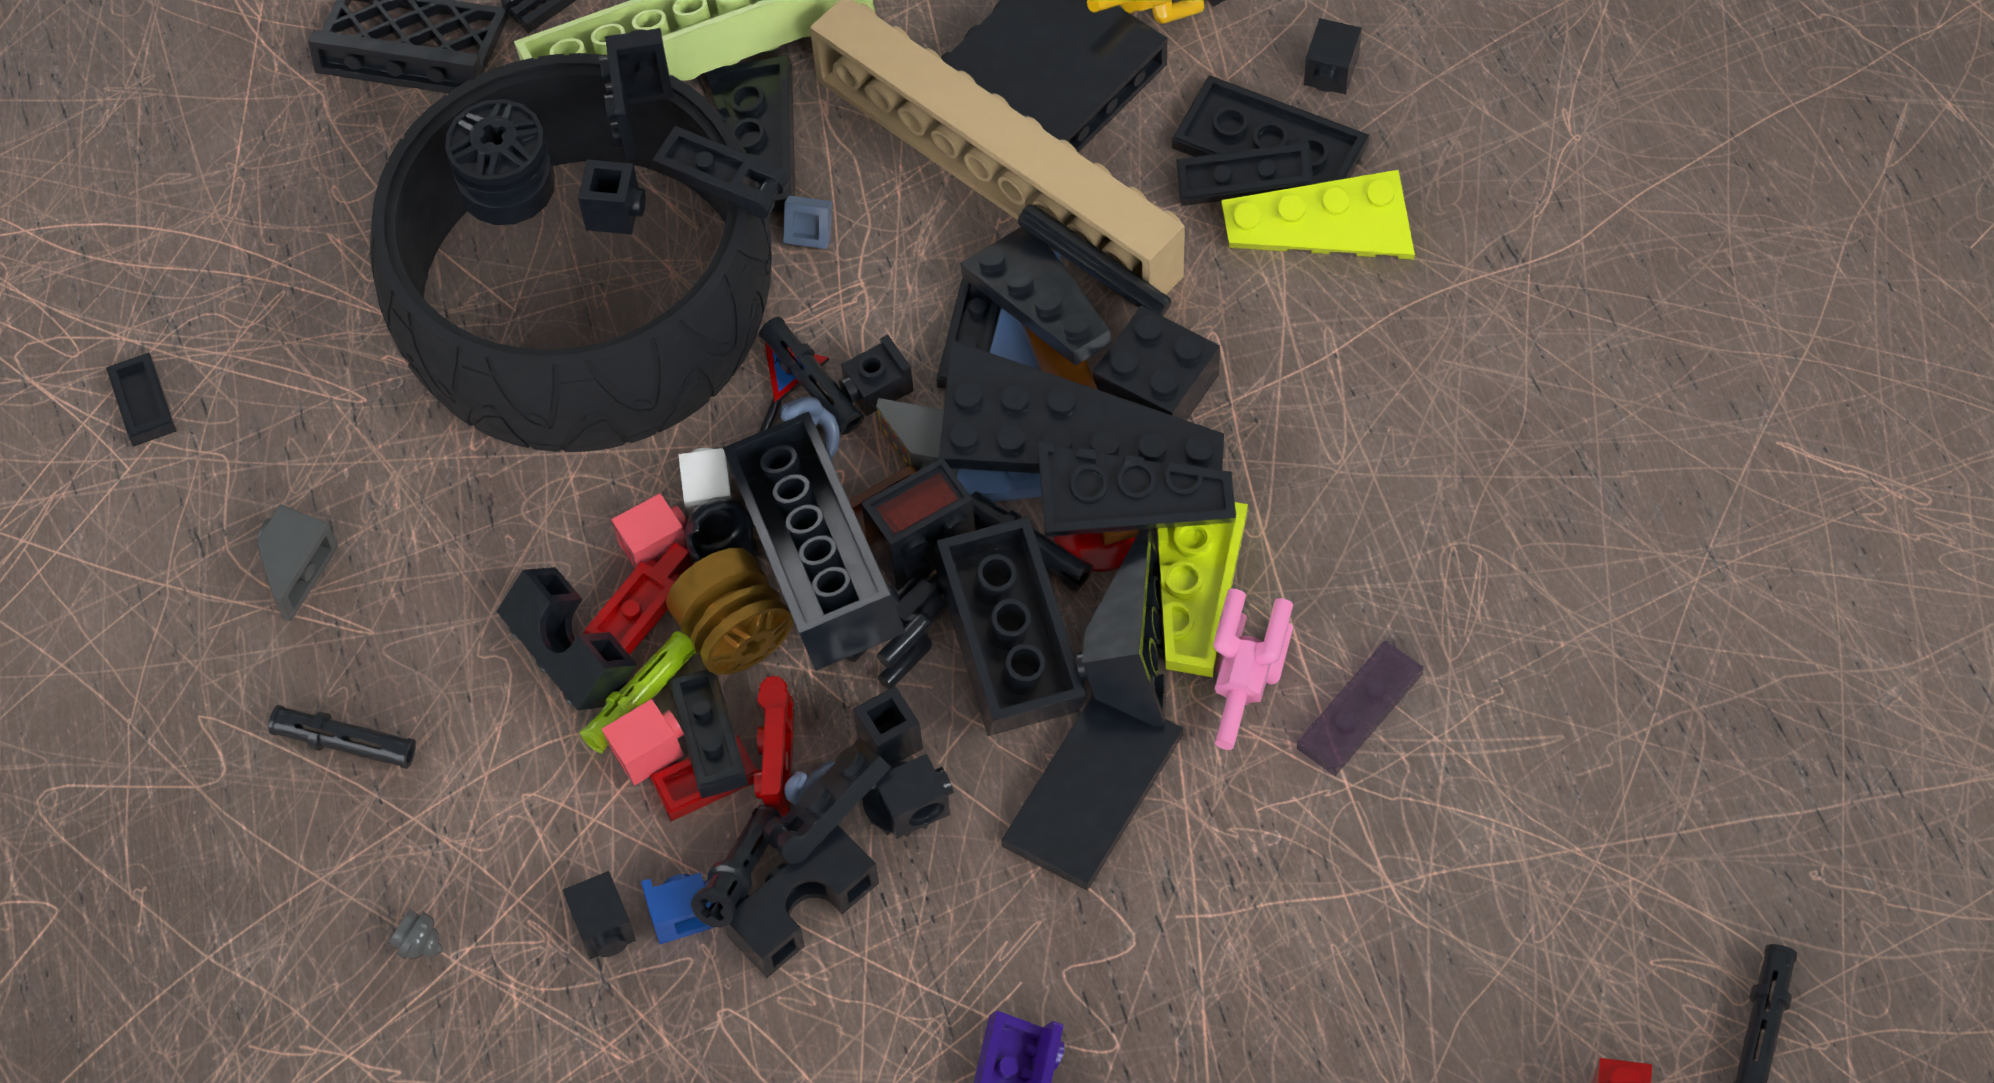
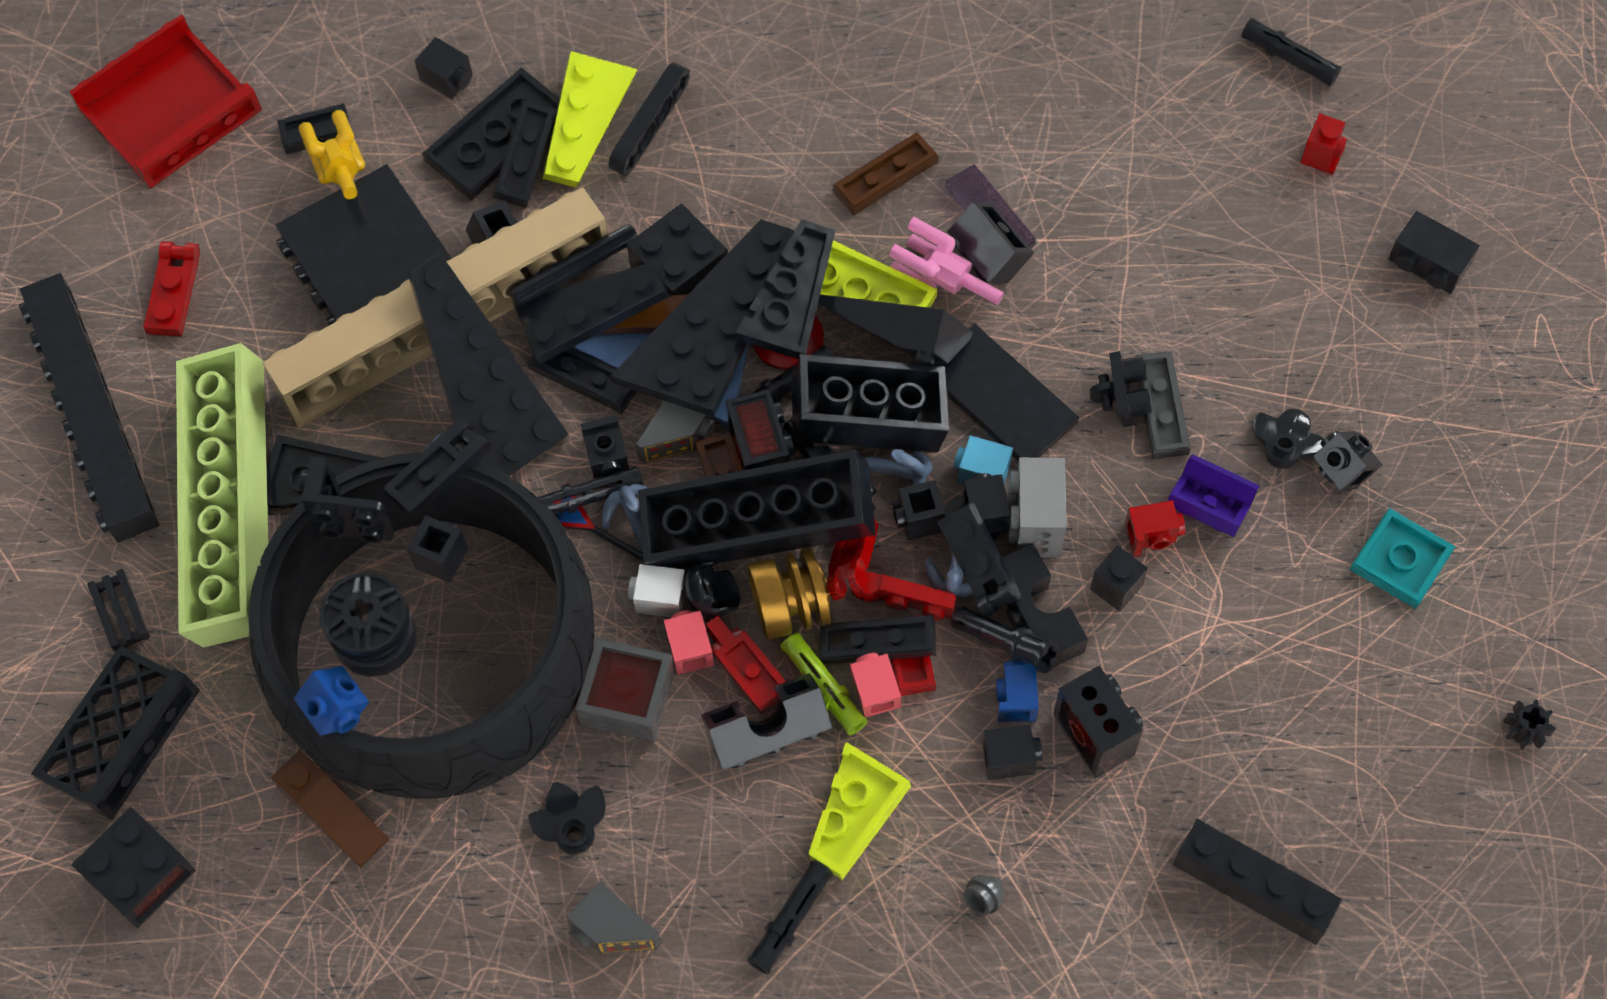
camera: 75 degrees left, 5 degrees up
(257, 102) = (133, 867): none -> black piece
(349, 275) = (329, 808): none -> reddish brown slope
(406, 160) = (331, 700): none -> blue brick
(417, 479) = (567, 813): none -> black plate
(491, 772) = (857, 808): none -> neon yellow wing
(567, 483) = (625, 689): none -> piece
(653, 997) = (1098, 720): none -> black piece
(790, 666) = (850, 561): none -> red hinge
(865, 982) = (1118, 578): none -> black brick
(893, 233) = (481, 373): none -> black wing
(927, 857) = (1038, 505): none -> light grey piece
(941, 700) = (904, 466): none -> sand blue piece
(952, 1008) = (1153, 526): none -> red brick
(980, 789) = (982, 457): none -> medium azure brick
(1126, 163) = (488, 221): none -> black brick
(1142, 921) = (1128, 402): none -> black hips
(1144, 984) = (1166, 422): none -> dark grey tile
(1300, 709) = (990, 242): none -> black brick
(1346, 287) = (649, 119): none -> black beam
(1374, 571) = (885, 173): none -> reddish brown tile

